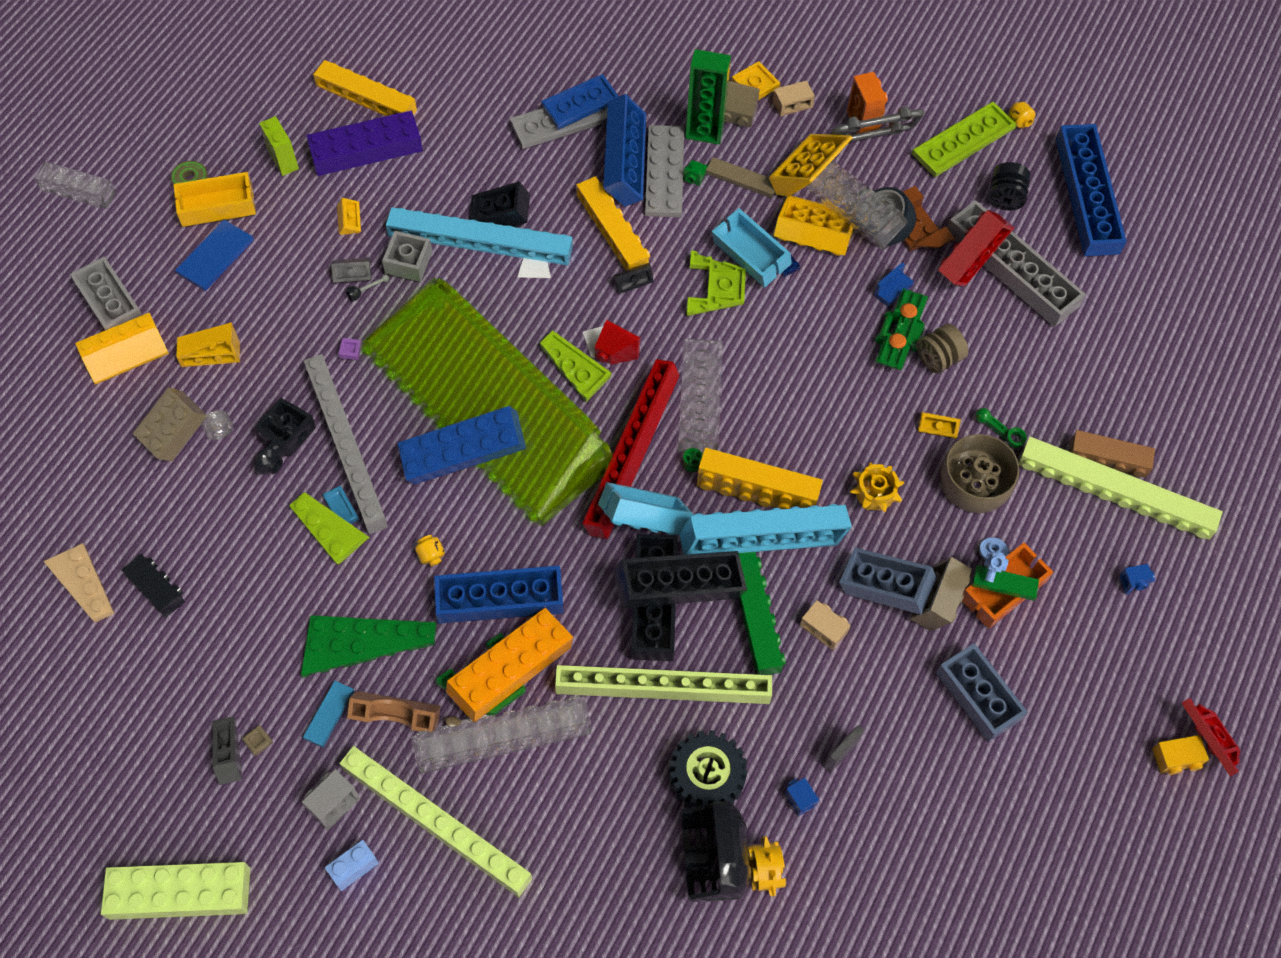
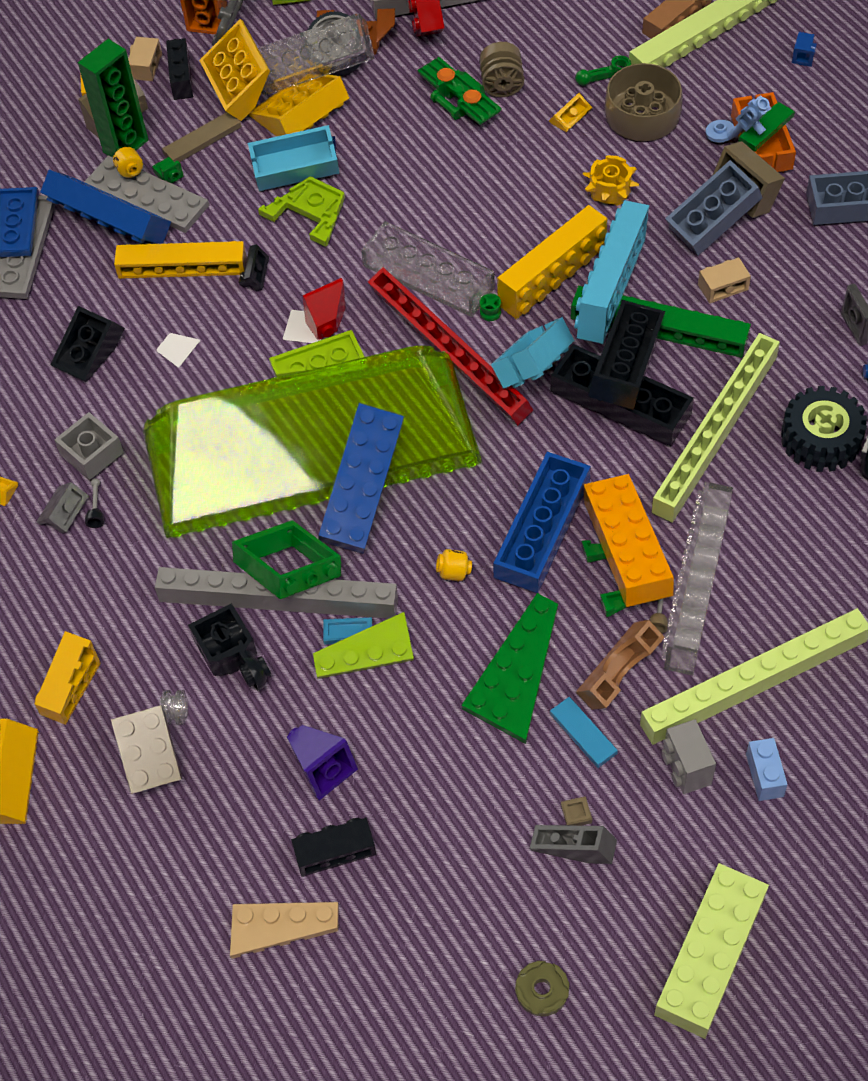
camera: 55 degrees left, 5 degrees down
(108, 793) = (542, 1004): none -> olive tile
(216, 540) = (322, 757): none -> dark purple slope
(350, 349) = (163, 546): medium lavender plate -> none
(379, 412) = (277, 538): none -> green window
(482, 236) = (108, 375): medium azure brick -> none
(676, 141) = (127, 162): none -> yellow head
(797, 126) = (179, 69): none -> black brick
(891, 286) = (407, 80): blue panel -> none

